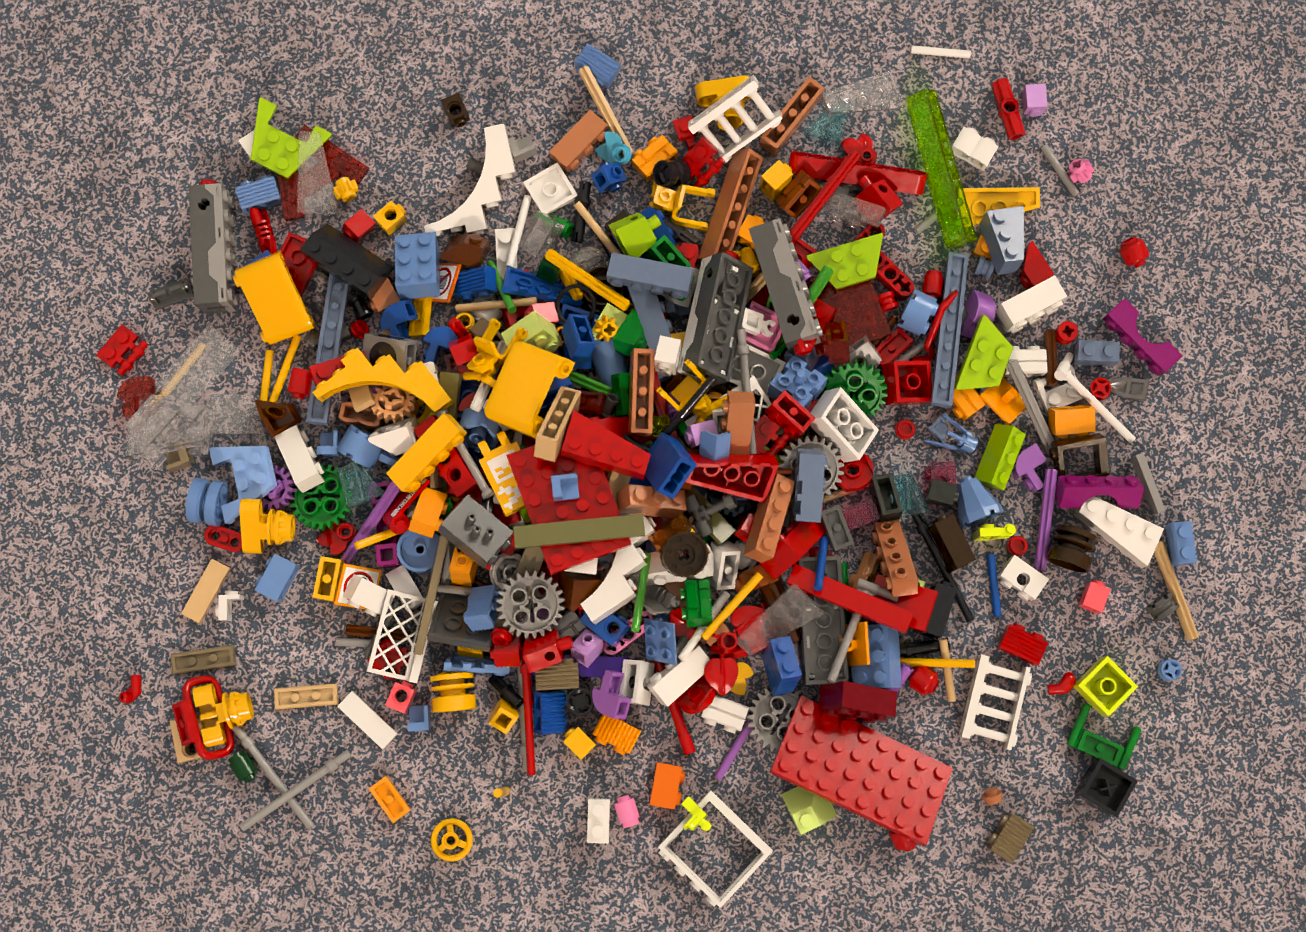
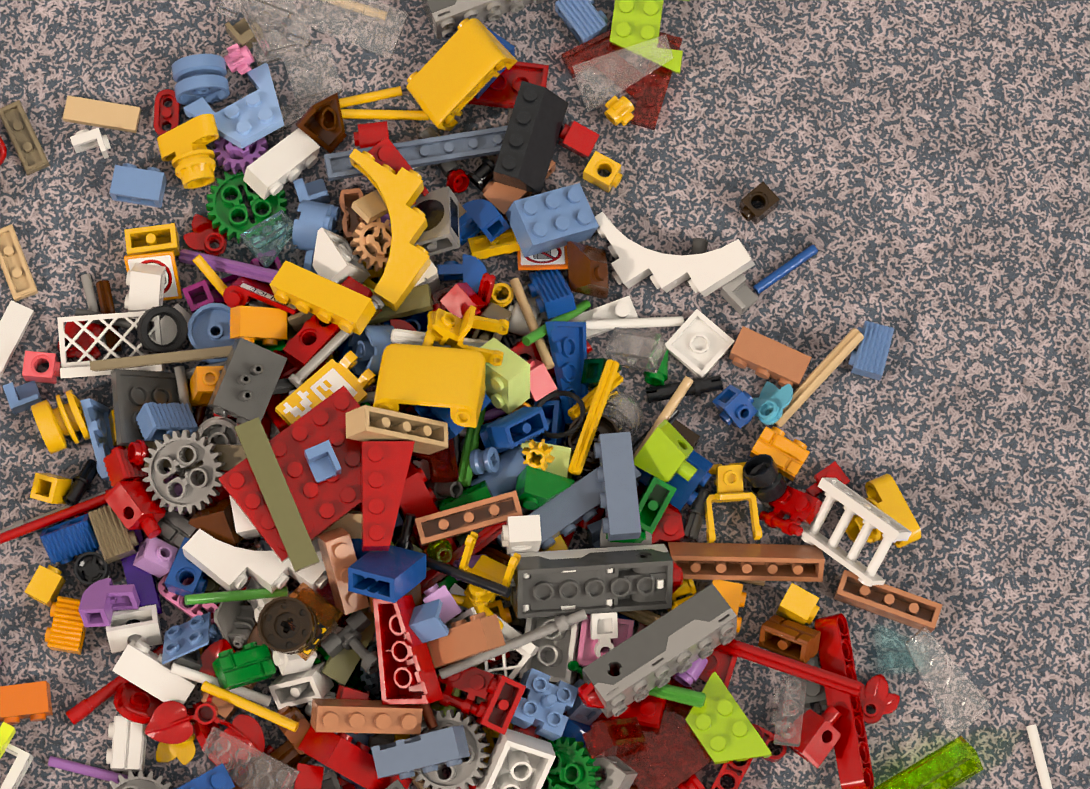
camera: 70 degrees right, 5 degrees down
(199, 467) = (239, 59): none -> bright pink gear
(263, 229) = (540, 36): red hinge -> none
(412, 576) = (142, 329): none -> black tyre
(512, 109) = (785, 269): none -> blue bar
(595, 371) = (484, 460): none -> medium blue wheel

